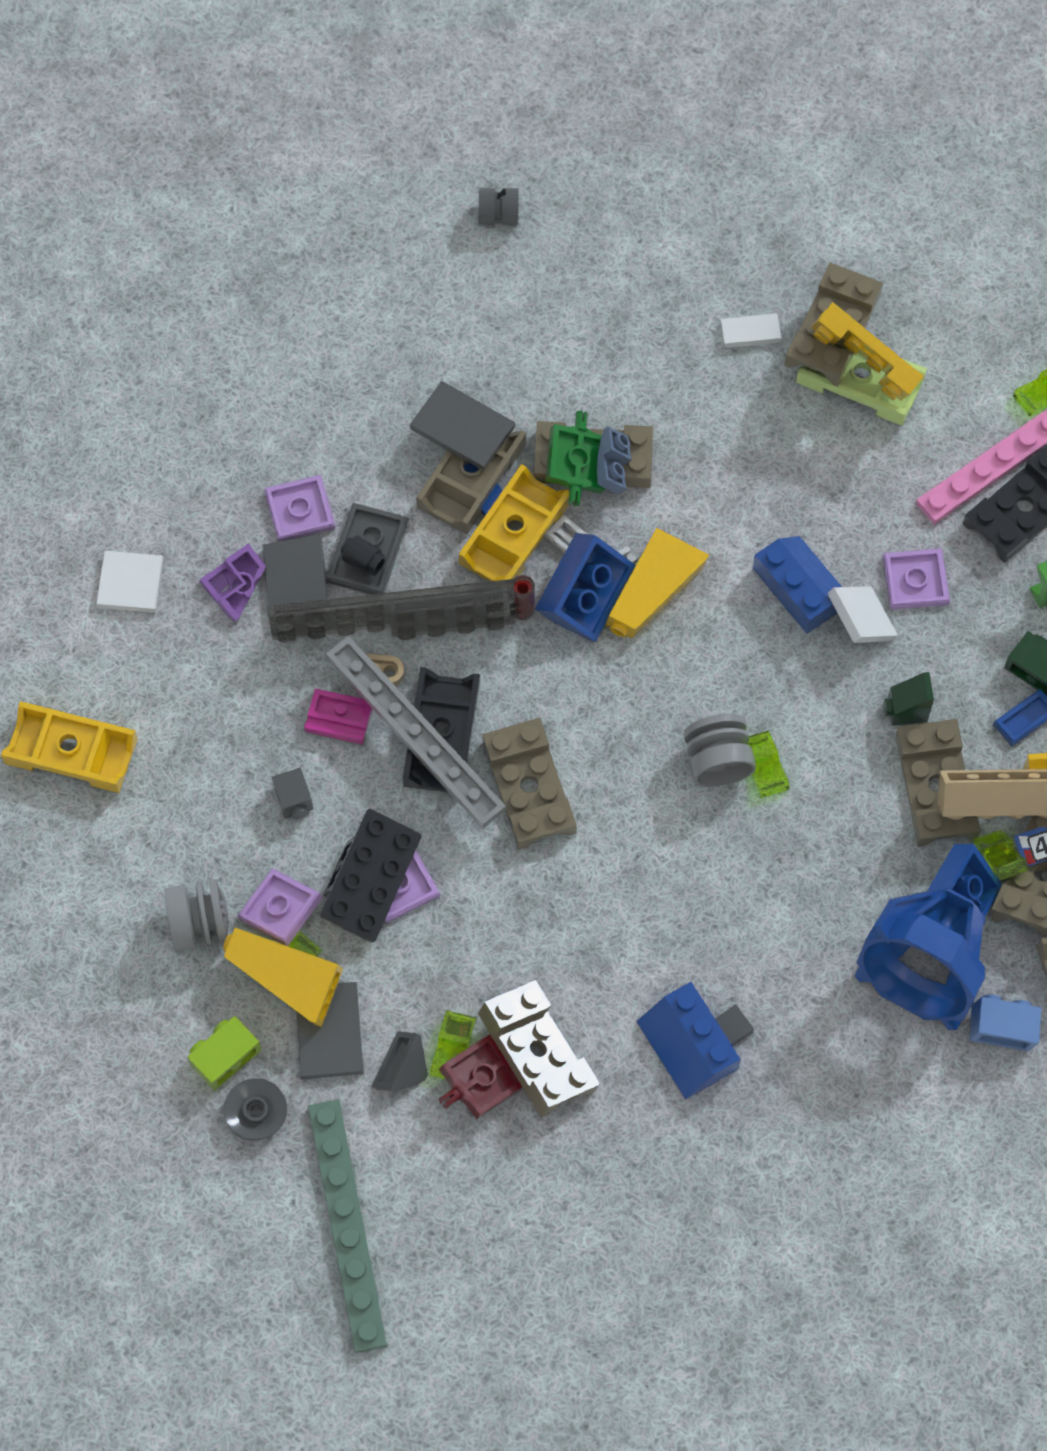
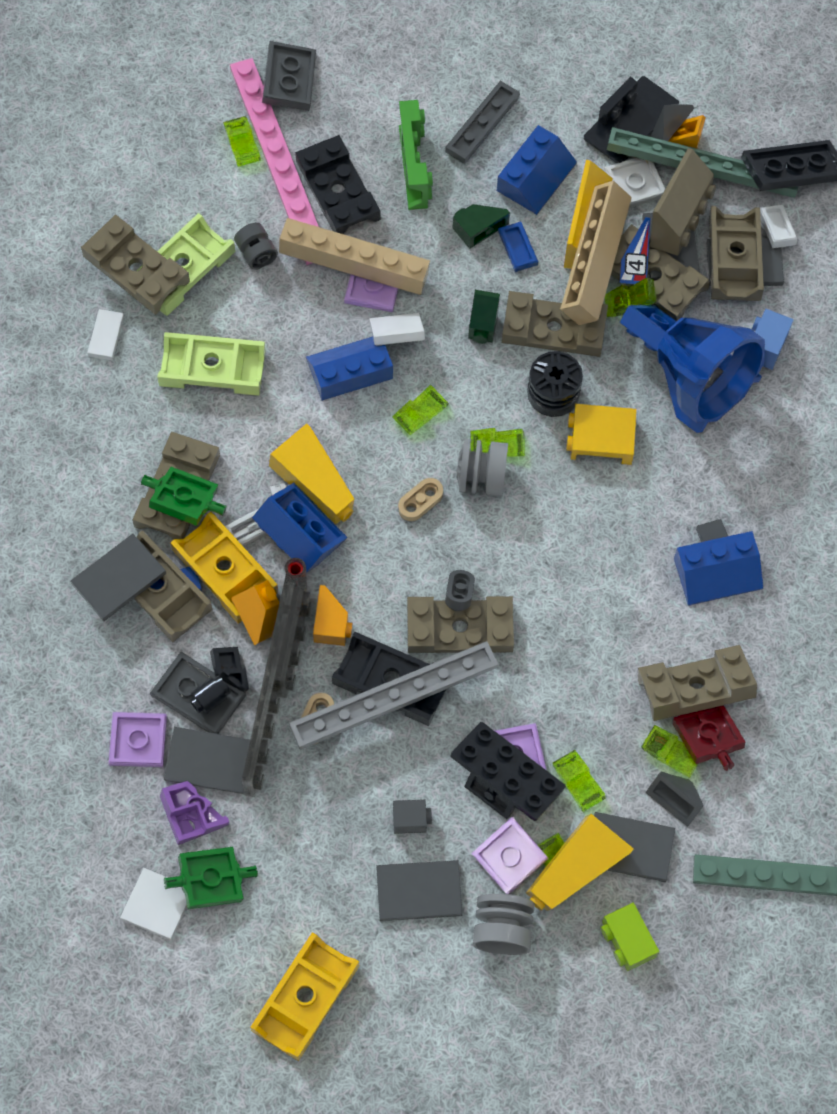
camera: 75 degrees left, 0 degrees up
(168, 619) = (210, 877): none -> green plate
(217, 828) = (419, 890): none -> dark grey tile
(253, 1094) = (696, 914): dark grey dish -> none
(338, 716) = (349, 760): dark pink plate -> none
(388, 957) = (578, 780): none -> clear neon green slope
(405, 568) = (228, 666): none -> black slope
(472, 566) = (258, 610): none -> light orange slope
(491, 649) = (331, 620): none -> light orange slope
(564, 767) = (459, 590): none -> dark grey plate
(612, 455) = (189, 466): sand blue slope -> none
(666, 701) = (417, 498): none -> tan plate
(754, 469) = (238, 365): none -> yellowish green piece
(775, 672) = (421, 410): none -> clear neon green slope
(814, 870) = (602, 432): none -> yellow panel
(849, 813) = (554, 383): none -> black wheel
(899, 376) = (201, 231): yellow piece -> none
(914, 440) = (255, 245): none -> dark grey wheel
(933, 542) = (354, 256): none -> tan brick

